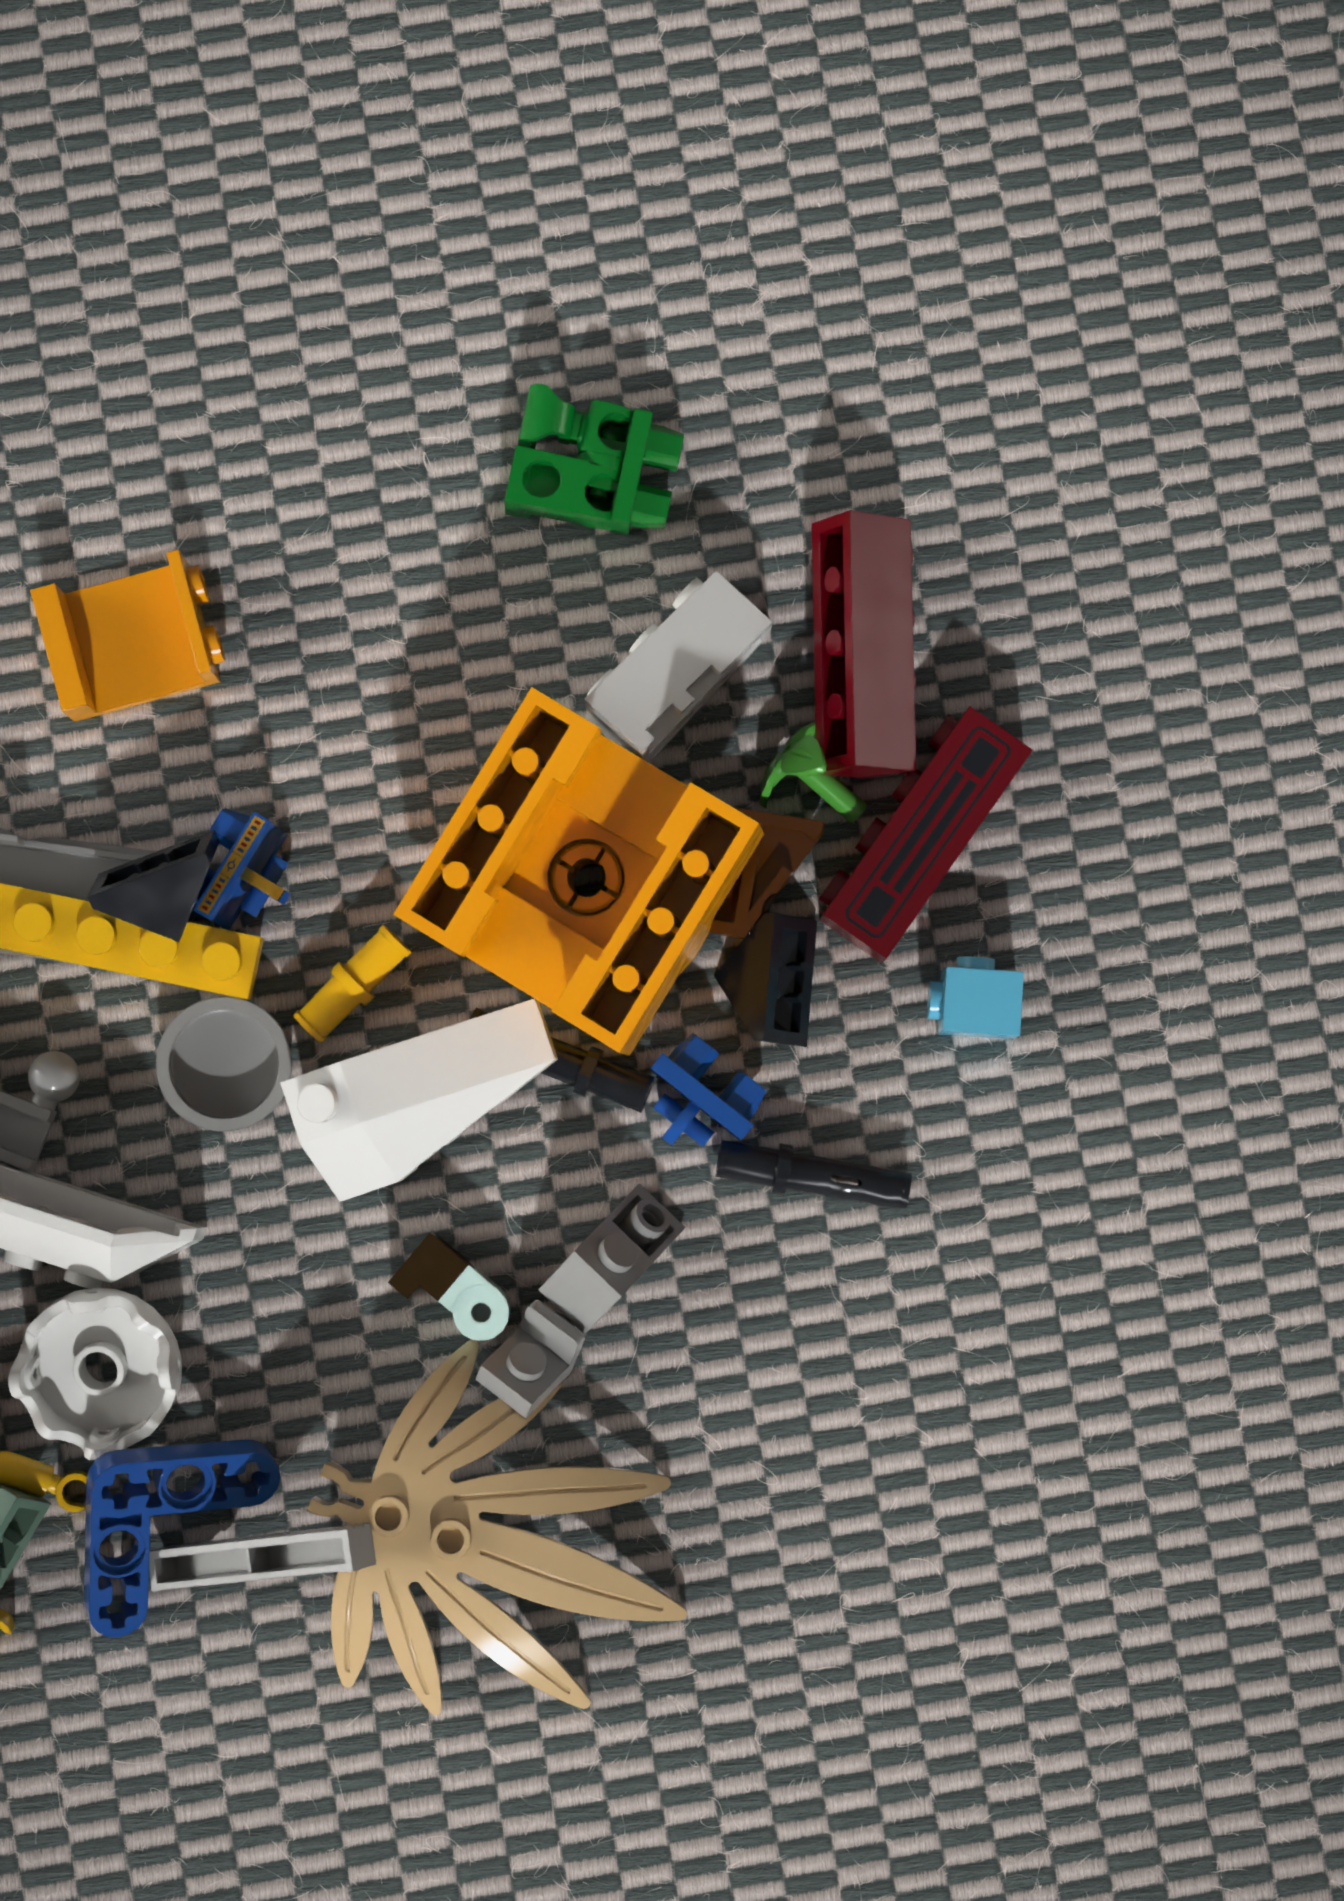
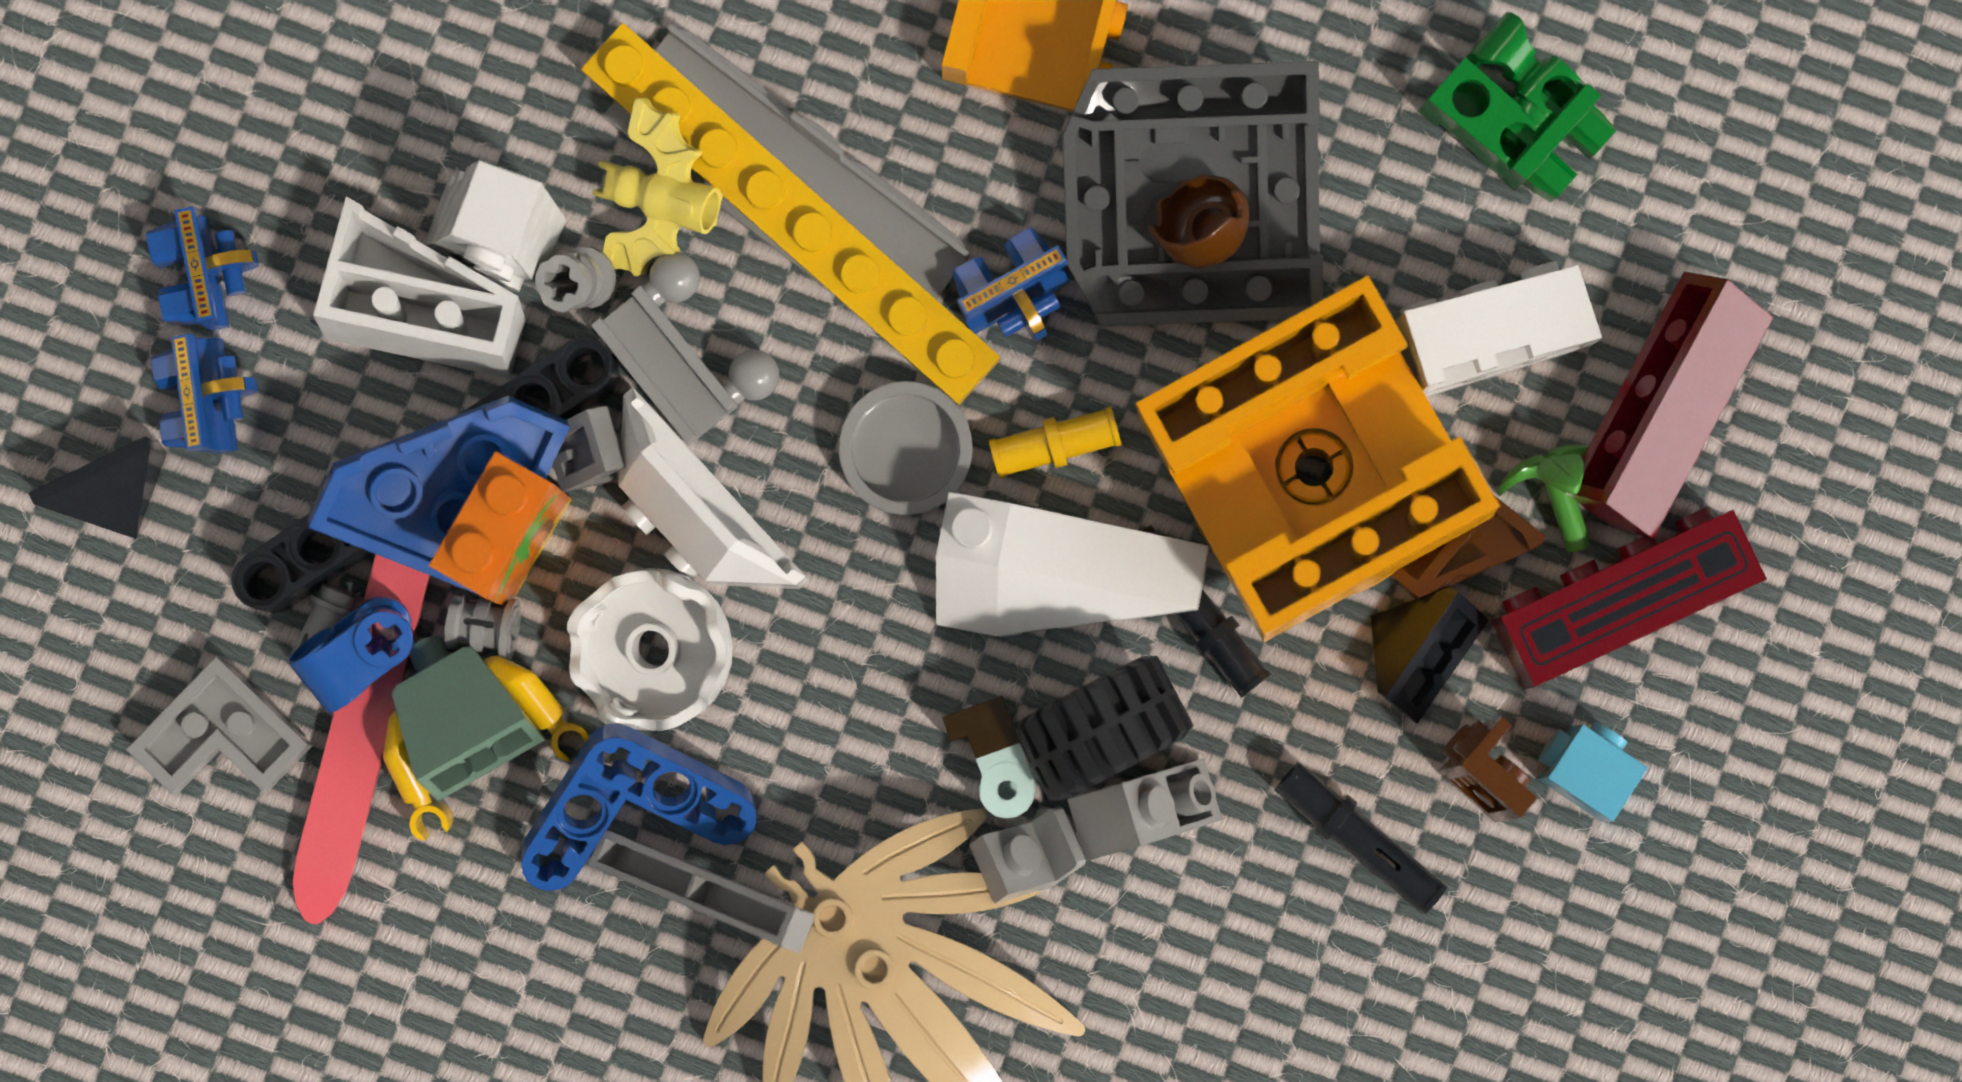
camera: 30 degrees right, 0 degrees up
(157, 888) = (938, 264): black slope -> none
(347, 697) = (1158, 126): none -> dark grey wedge
(367, 719) = (1202, 221): none -> reddish brown hair
(531, 1210) = (1103, 728): none -> black tyre
(729, 1110) = (1319, 740): blue hips -> none
(895, 1063) = (1490, 784): none -> reddish brown bracket

